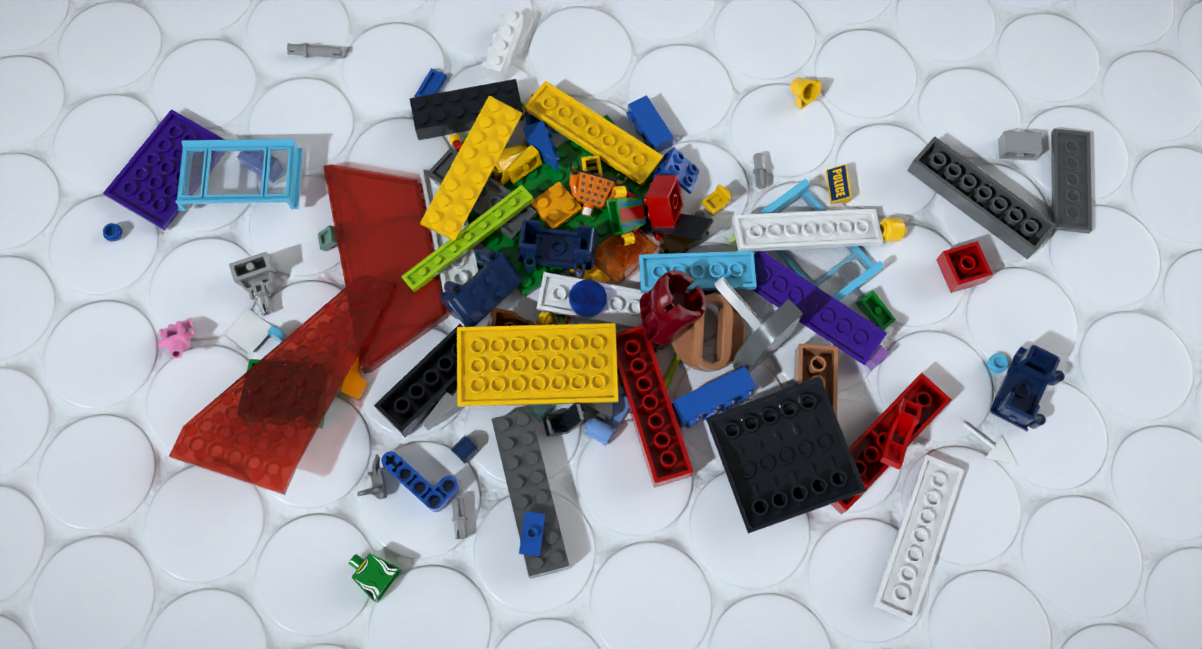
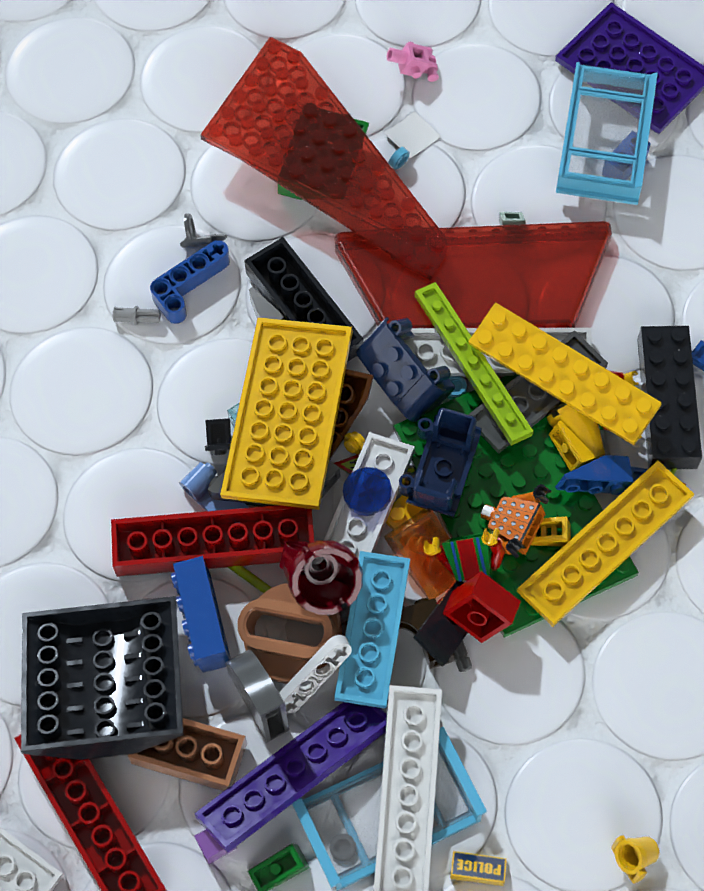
camera: 105 degrees right, 5 degrees down
(112, 232) = (561, 10): blue plate -> none
(256, 277) = (471, 142): light grey brick -> none
(353, 384) = (323, 229): light orange tile -> none
(373, 575) = (98, 223): green torso -> none
(464, 449) = (215, 331): dark blue brick -> none
(530, 488) = (142, 389): dark grey brick -> none
(532, 534) = (88, 374): blue plate -> none
(556, 206) = (504, 476): light orange plate -> none
(649, 124) = (612, 624): blue brick -> none
(677, 164) = (531, 643): blue bracket -> none
(717, 200) = (480, 689): yellow bracket -> none
(760, 170) = (517, 760): light grey axle -> none
(899, 433) = (82, 822): red arch -> none

